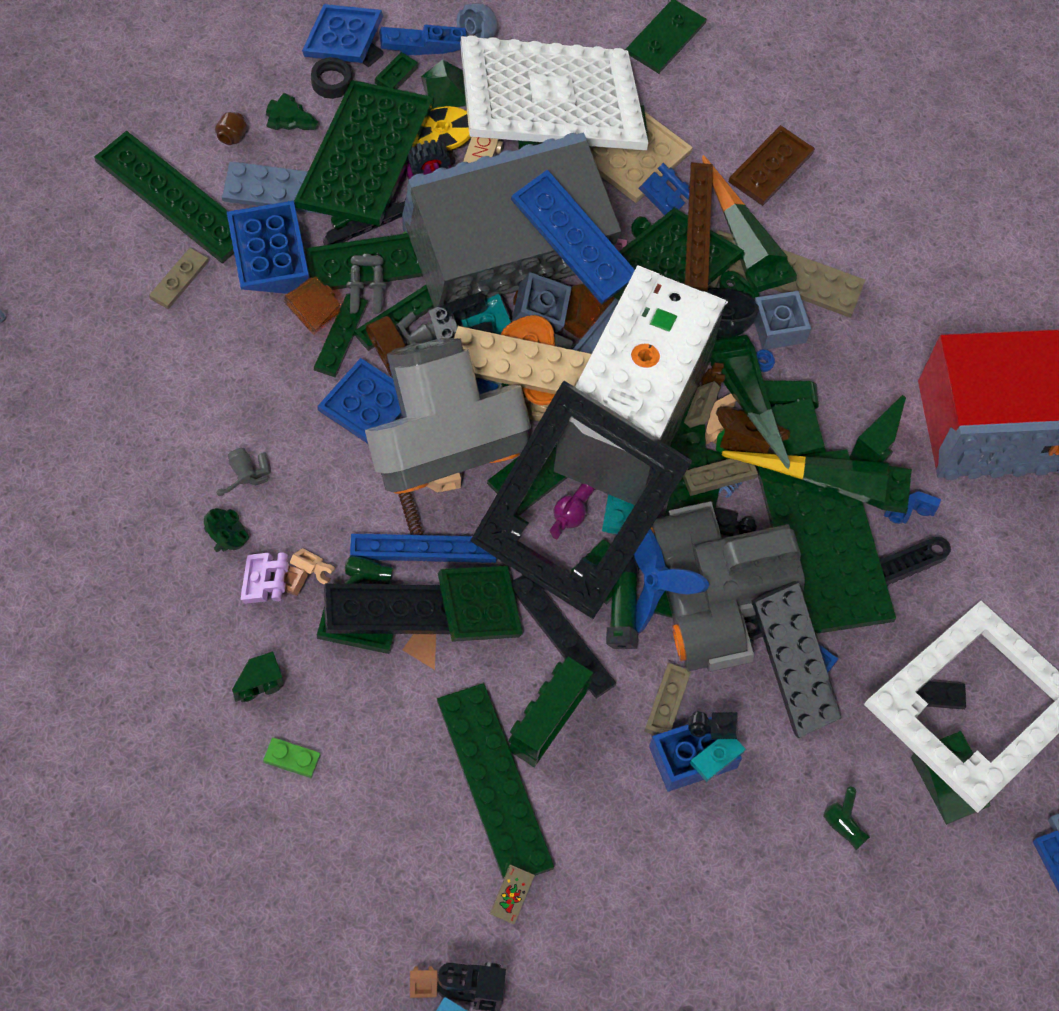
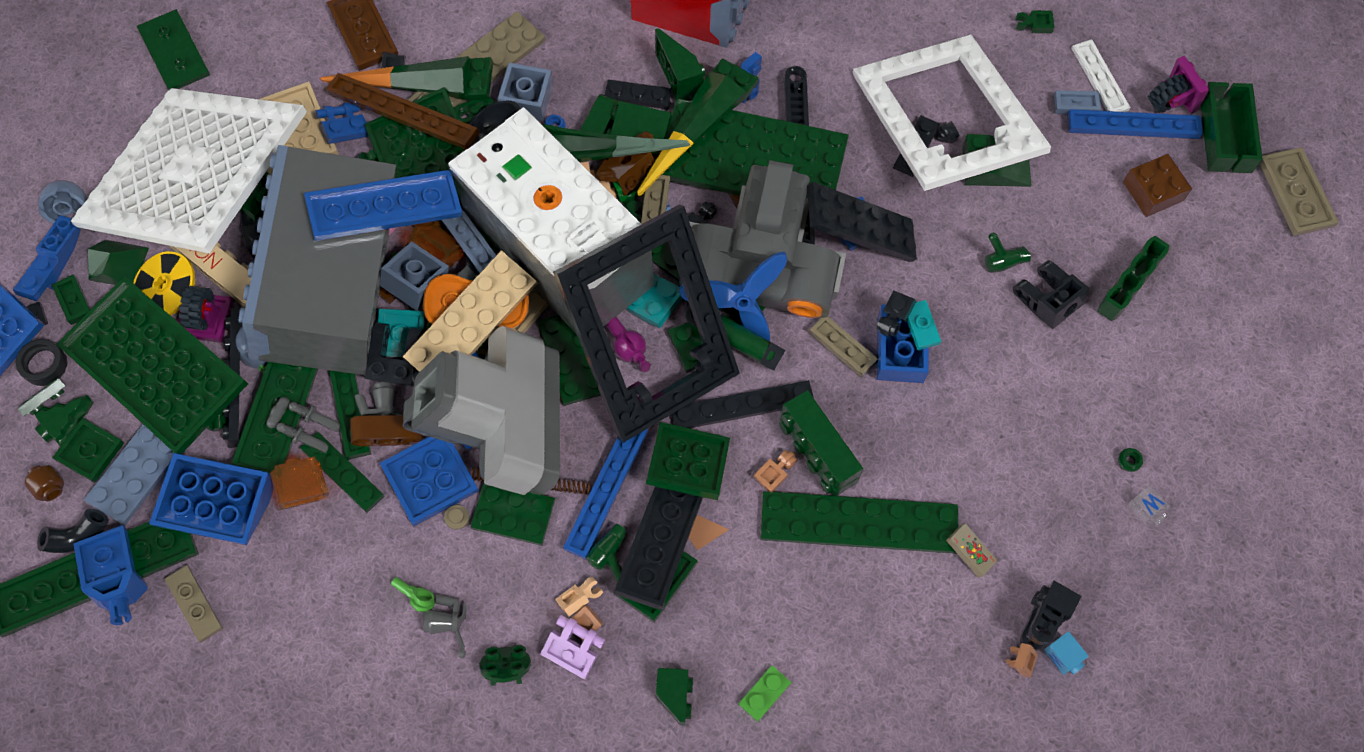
camera: 60 degrees left, 5 degrees up
(173, 204) = (109, 573): none -> blue plate
(195, 169) = (62, 539): none -> black cylinder
(256, 441) = (420, 599): none -> bright green plate
(272, 145) = (88, 450): none -> dark green plate
(310, 96) = (34, 403): none -> plate
(341, 439) = (456, 517): none -> dark tan plate
(362, 486) = (513, 514): none -> dark green plate
(503, 684) = (772, 474): none -> nougat plate
(751, 201) = (392, 59): none -> black plate
(823, 892) = (1053, 307): none -> black brick
(837, 417) = (639, 94): none -> black plate
(895, 960) = (1133, 278): none -> dark green brick
(960, 718) = (947, 133): none -> black plate
(1016, 951) = (1157, 185): none -> reddish brown brick

